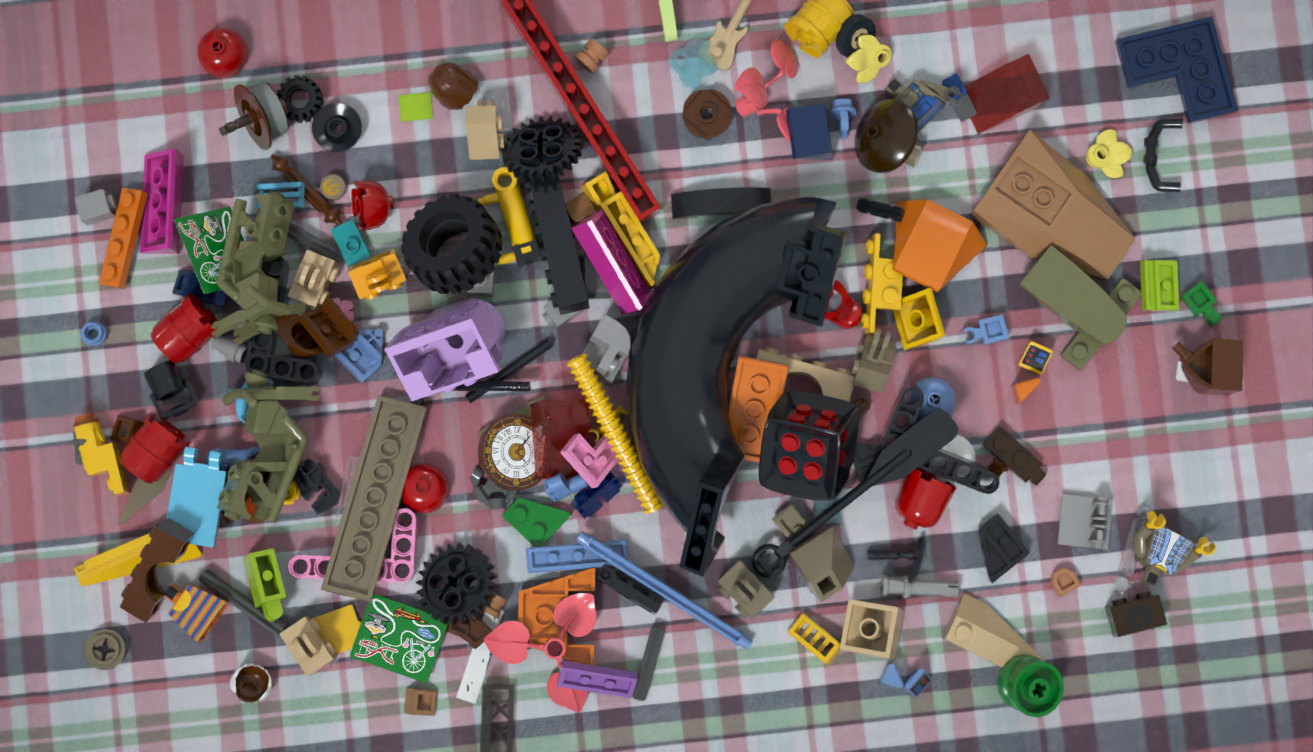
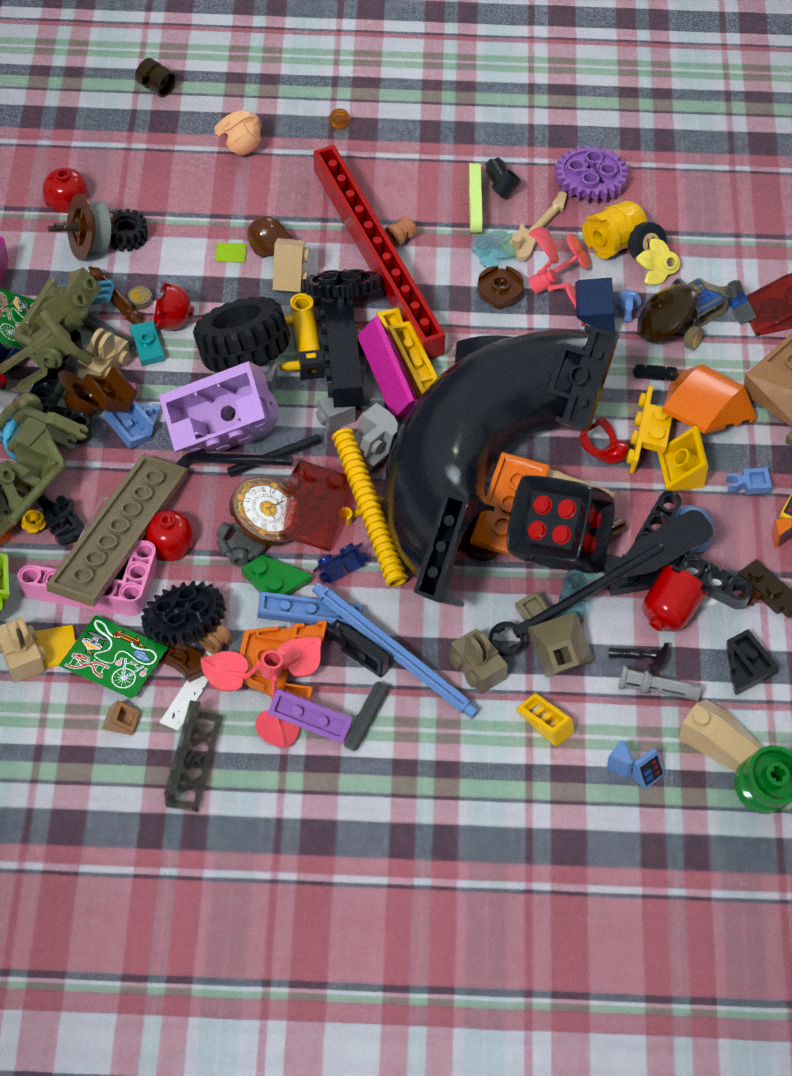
camera: 10 degrees right, 30 degrees down
(336, 115) = (155, 252): black dish -> none
(377, 275) = (165, 360): light orange brick -> none
(559, 488) = (306, 552): medium blue piece -> none
(590, 462) = (339, 528): bright pink plate -> none
(871, 629) = (606, 710): tan slope -> none
(874, 361) = (635, 481): dark tan brick -> none

